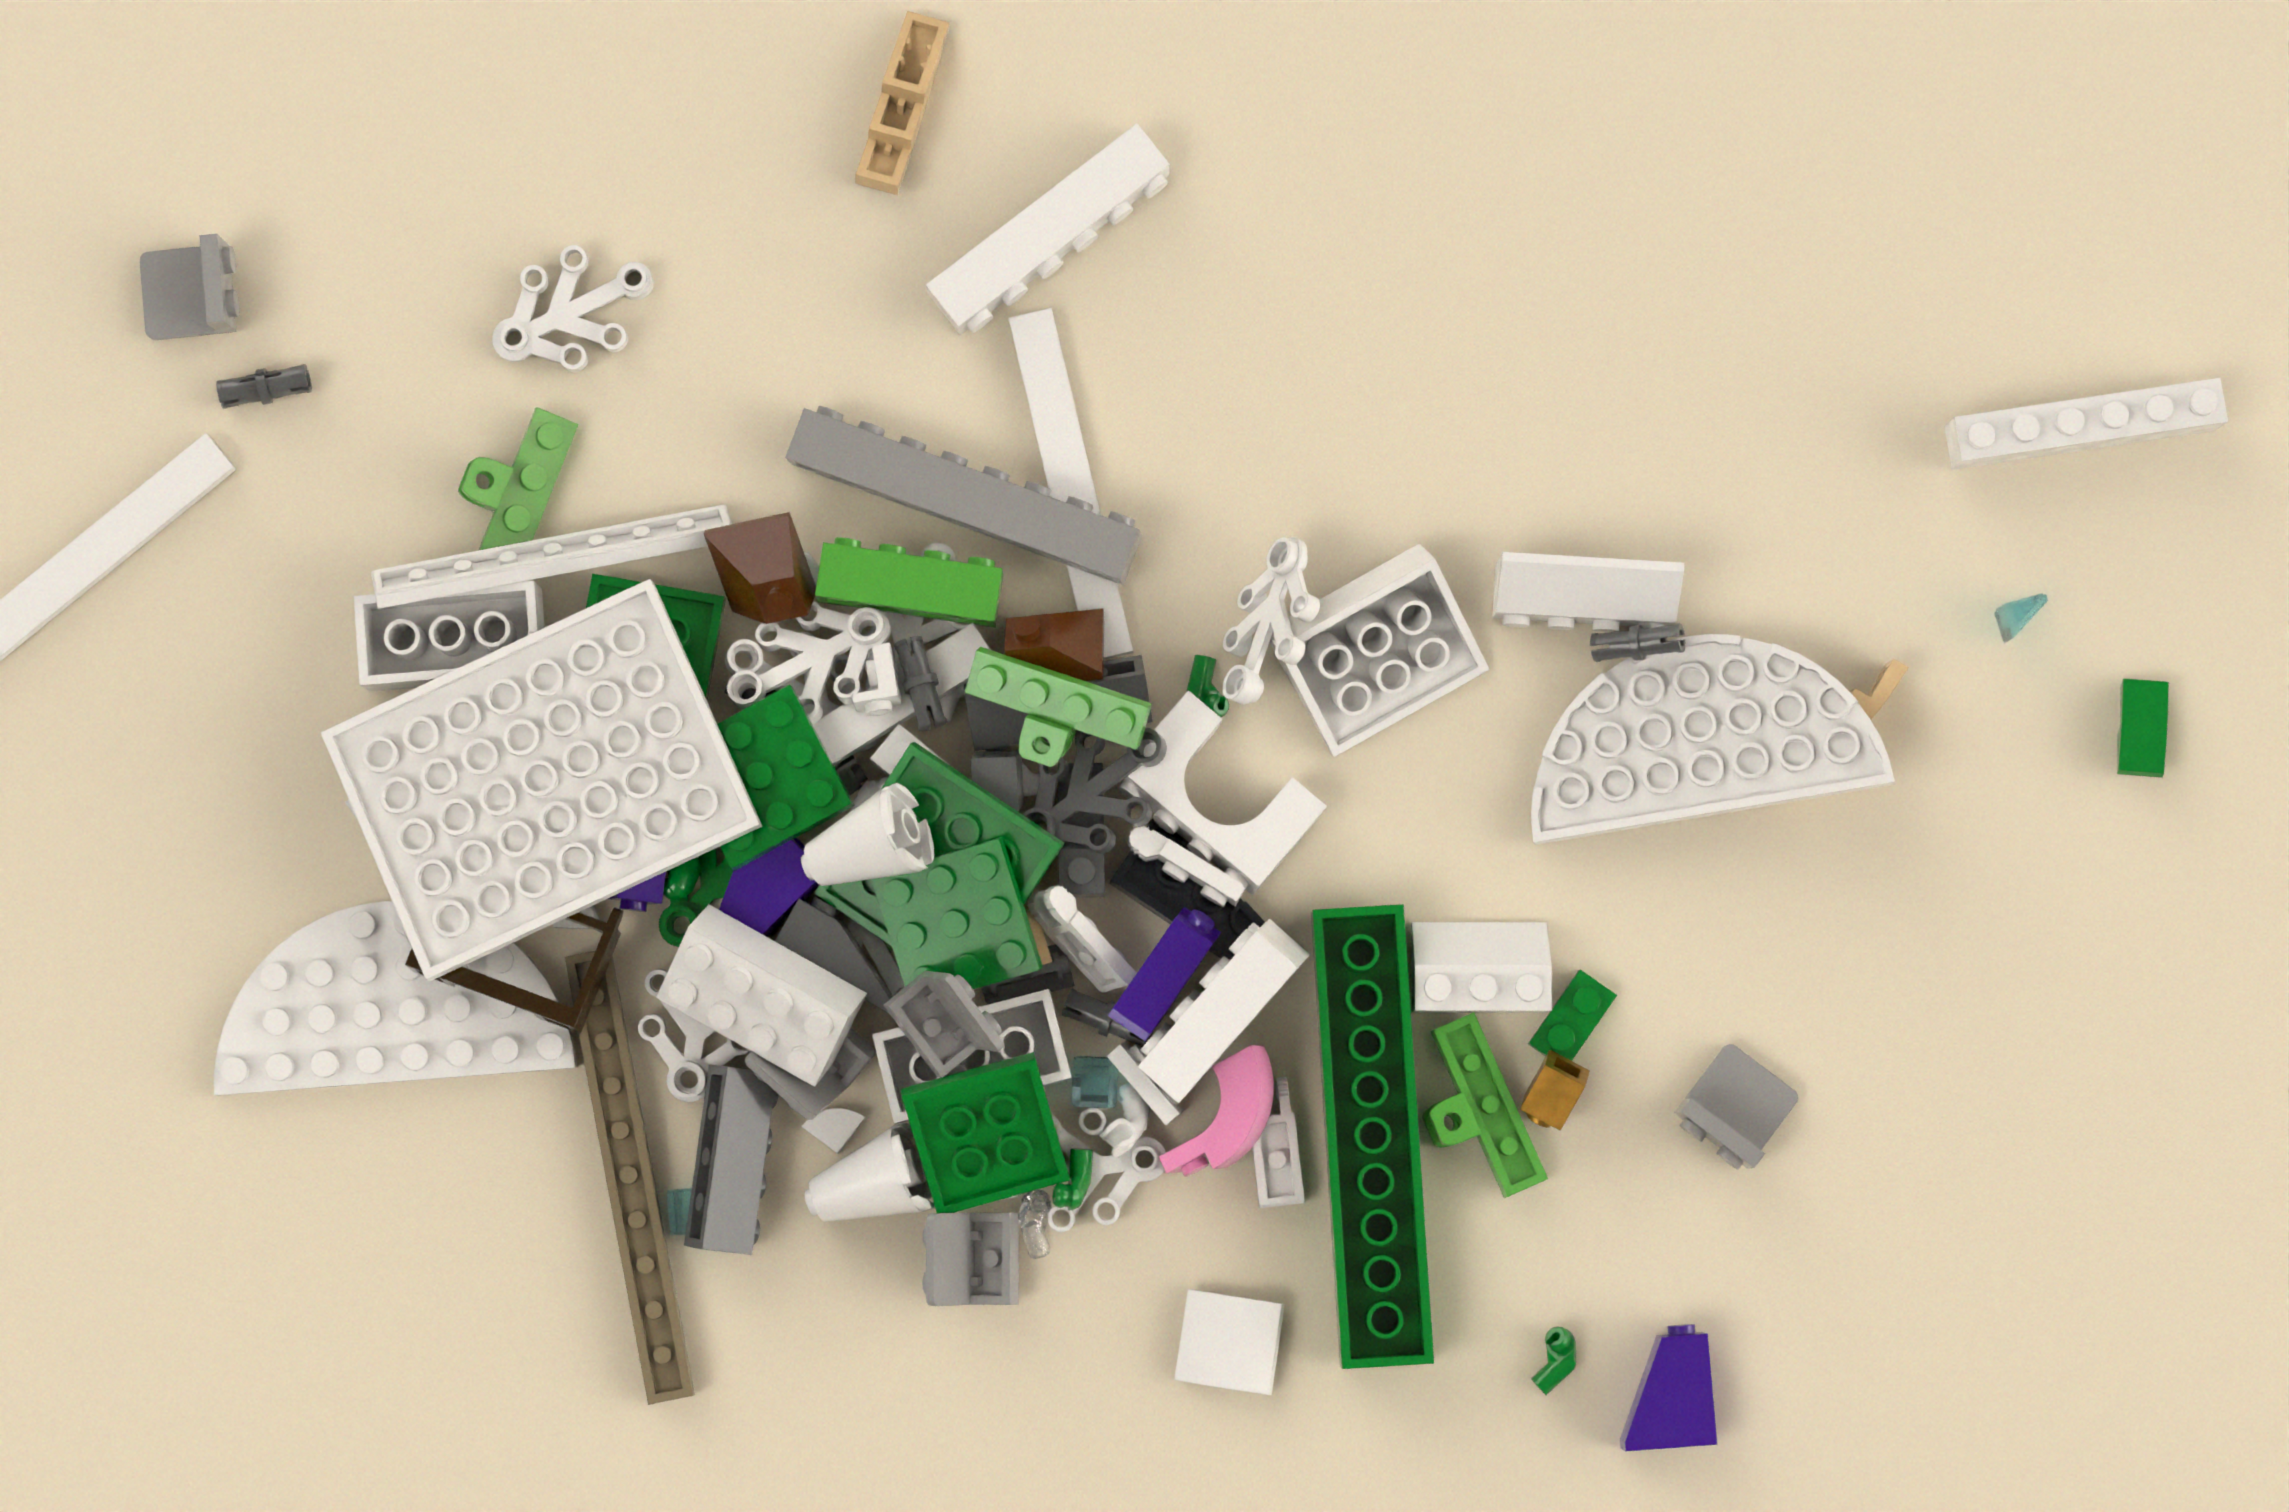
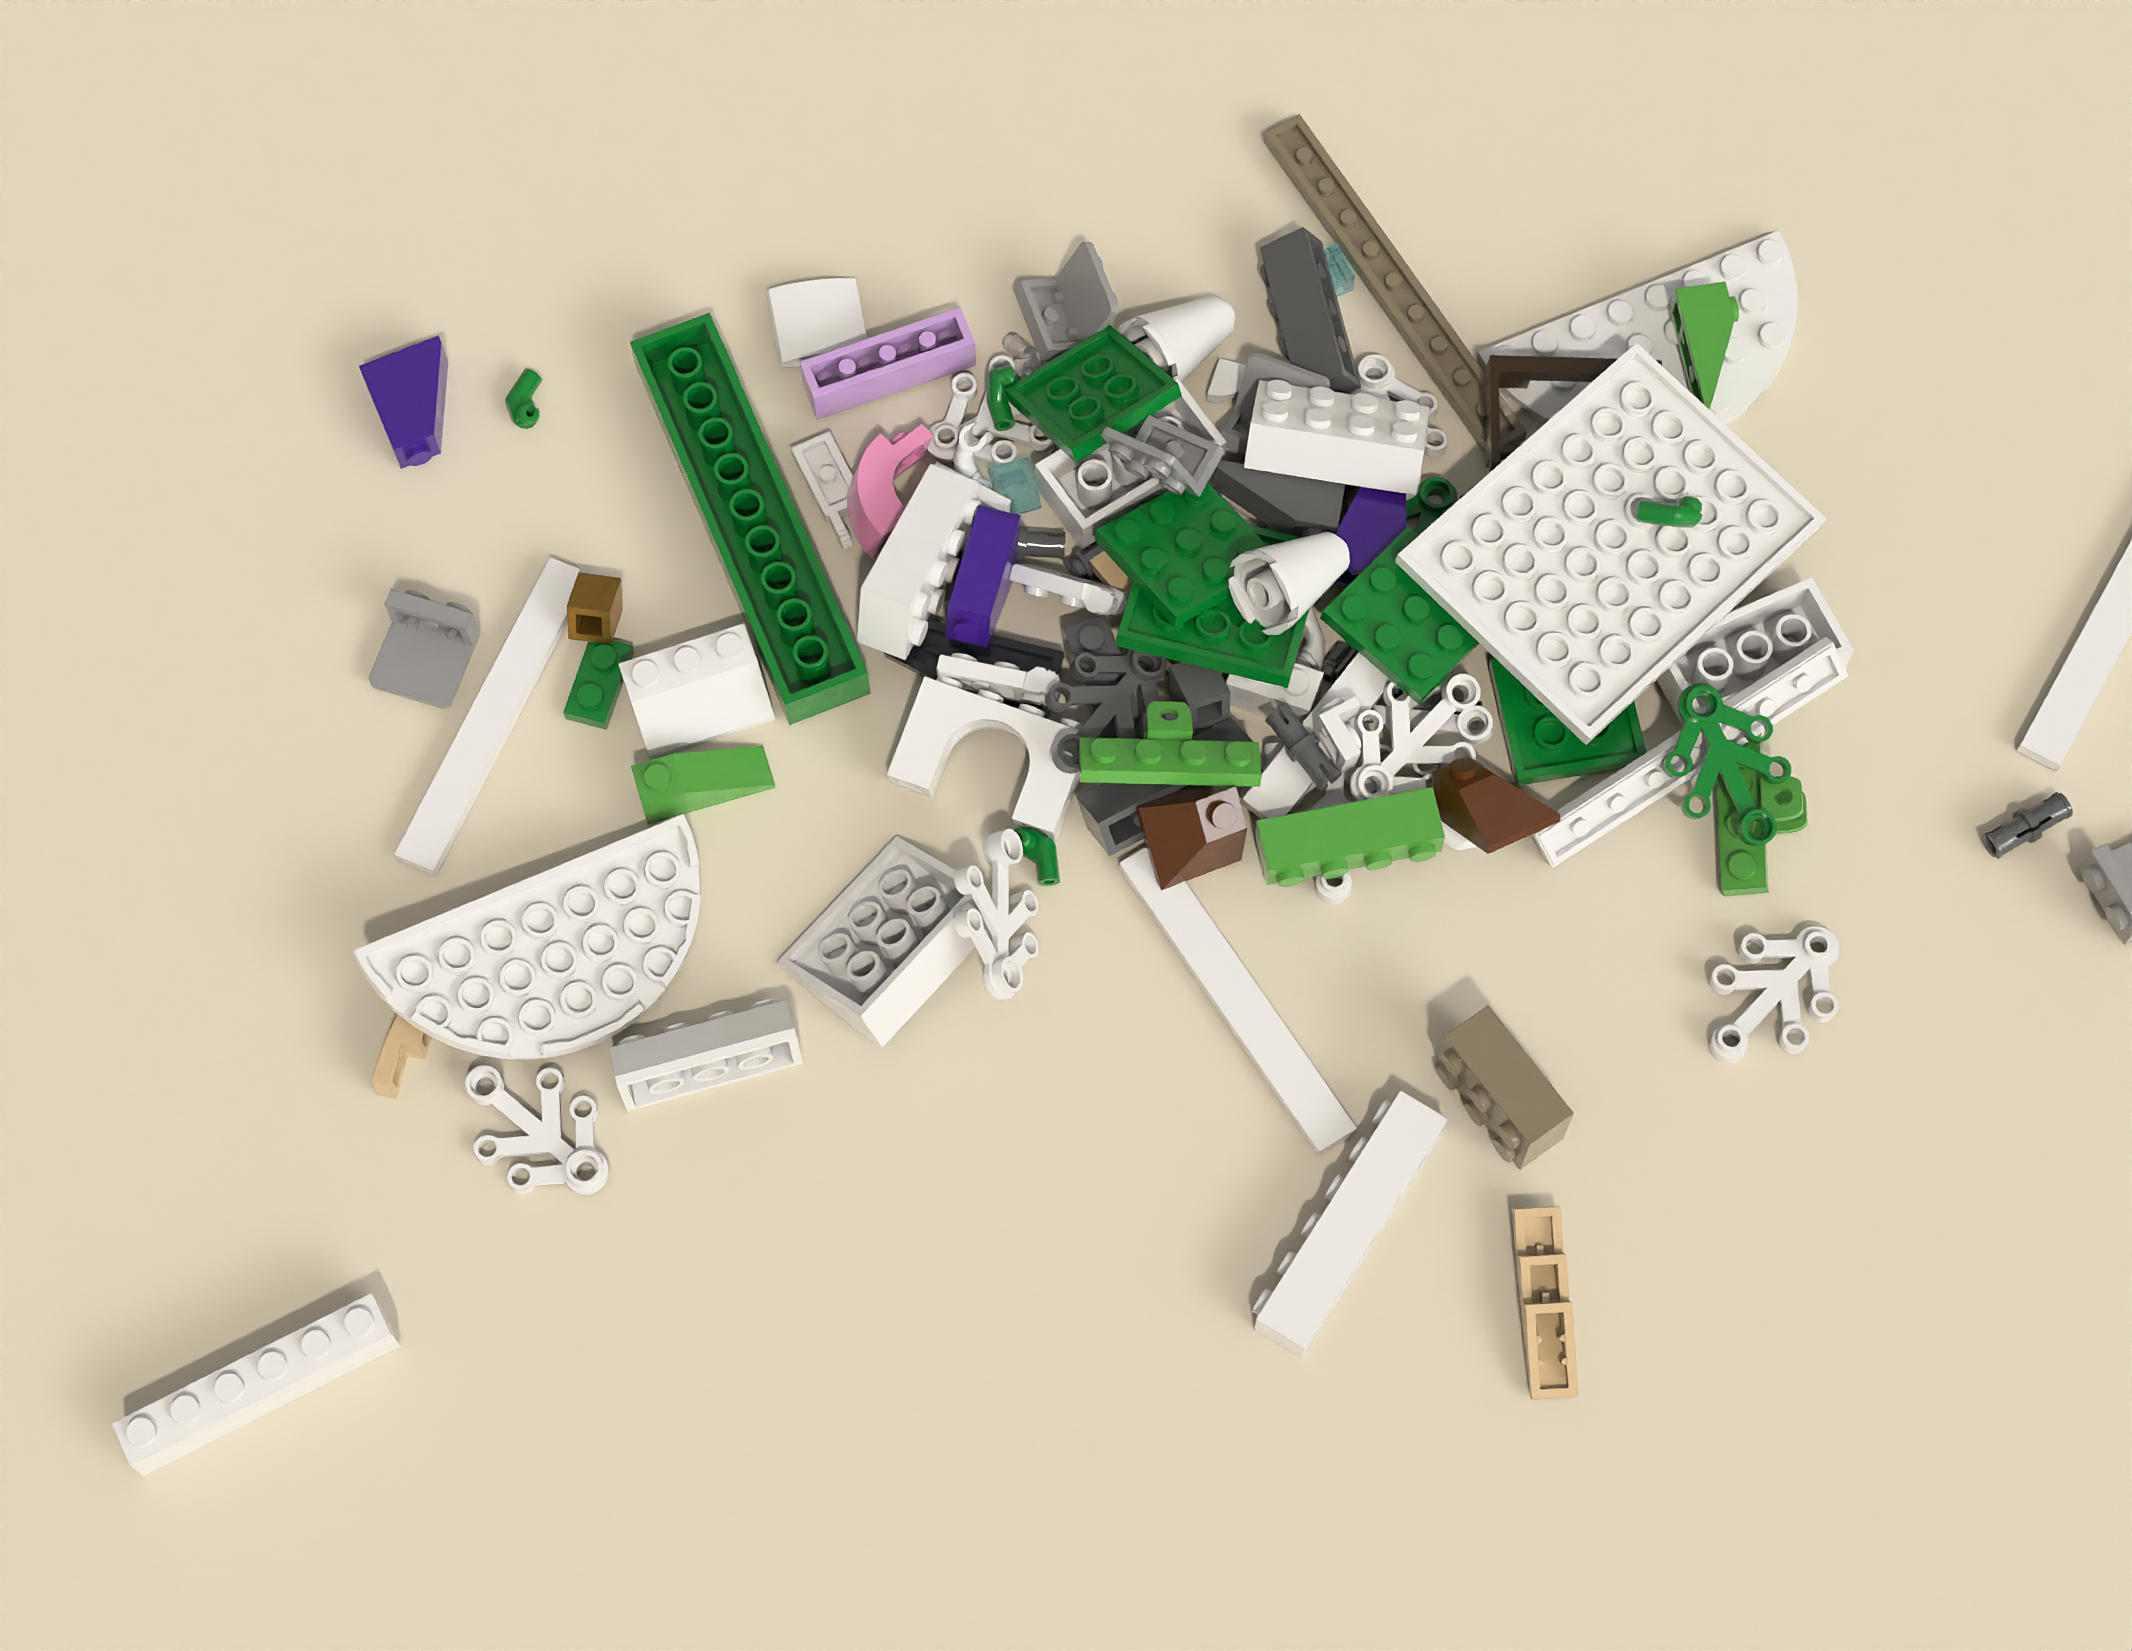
camera: 160 degrees right, 15 degrees down
(345, 988) = (1703, 327): none -> bright green slope
(476, 773) = (1684, 515): none -> green arm
(527, 528) = (1724, 757): none -> green plant
(865, 294) = (1503, 1088): none -> dark tan brick
(964, 495) = (1332, 941): light grey brick -> none
(1176, 1257) = (888, 363): none -> lavender brick
(1482, 1108) = (656, 574): bright green plate -> none
(1503, 874) = (700, 780): none -> bright green slope
(1637, 642) = (640, 1016): dark grey pin -> none
(1685, 1021) = (489, 720): none -> white tile
(1760, 574) = (542, 1136): none -> white plant
(2016, 614) = (275, 1179): clear light blue slope -> none
(2142, 728) = (126, 1113): green slope -> none

